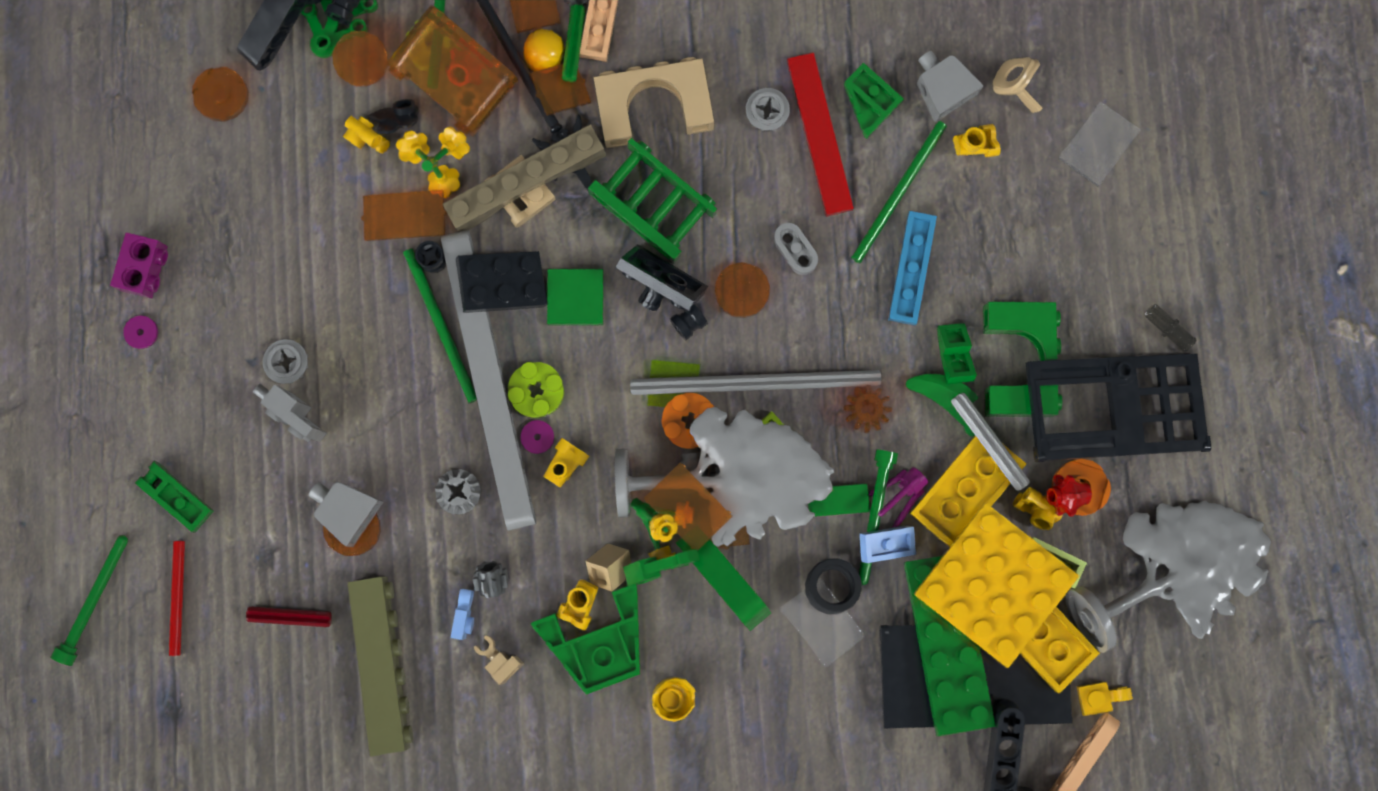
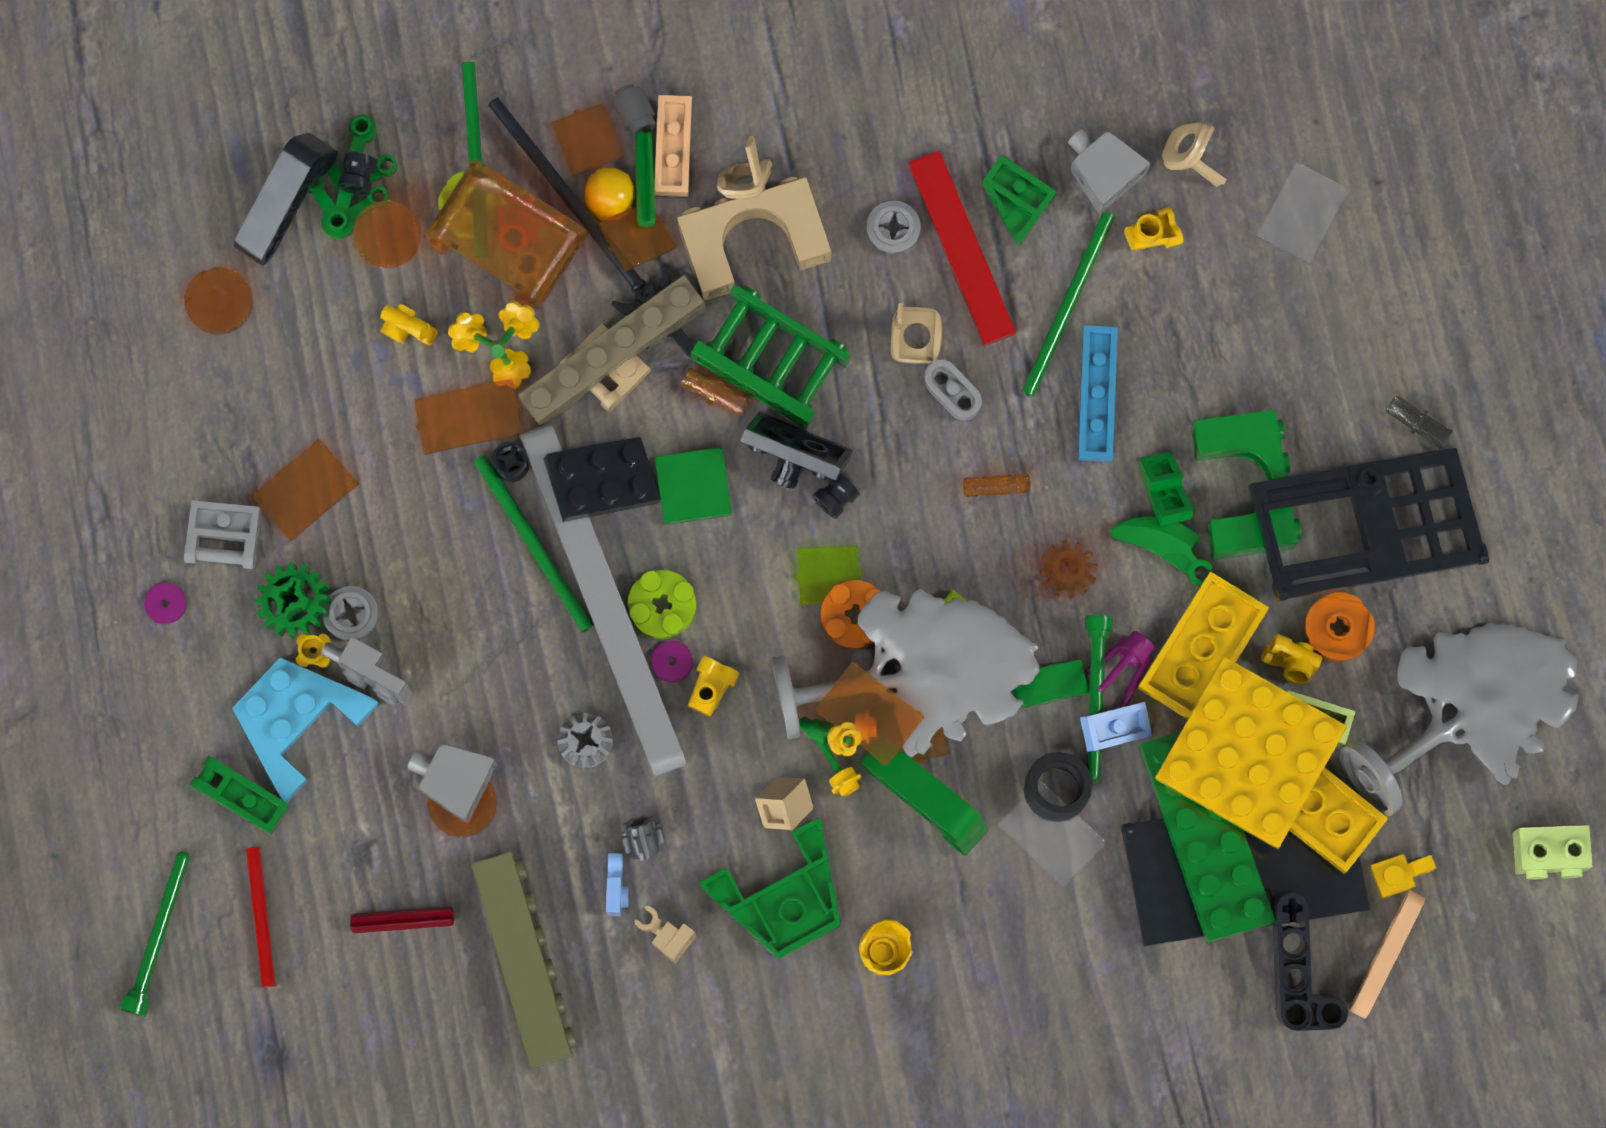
camera: 10 degrees left, 5 degrees down
(131, 264) = (145, 522): magenta brick -> none
(196, 274) = (223, 523): none -> light grey plate
(219, 432) = (284, 707): none -> medium azure wing
(227, 343) = (290, 612): none -> green gear
(245, 382) = (305, 644): none -> yellow plate
(265, 256) = (305, 490): none -> clear orange piece
(402, 115) = (449, 295): black plate -> none
(576, 609) = (750, 860): yellow plate -> none
(604, 223) = (715, 392): none -> clear orange pin
(650, 568) = (832, 796): green piece -> none
(665, 49) = (757, 169): none -> tan piece
(742, 290) = (895, 449): clear orange tile -> none
(755, 382) = (927, 557): light grey axle -> none
(767, 184) = (915, 315): none -> tan piece
(819, 331) = (996, 485): none -> clear orange axle
(990, 441) = (1221, 586): light grey axle -> none
(1068, 495) = (1322, 635): red rock -> none
(1229, 697) = (1552, 851): none -> yellowish green brick

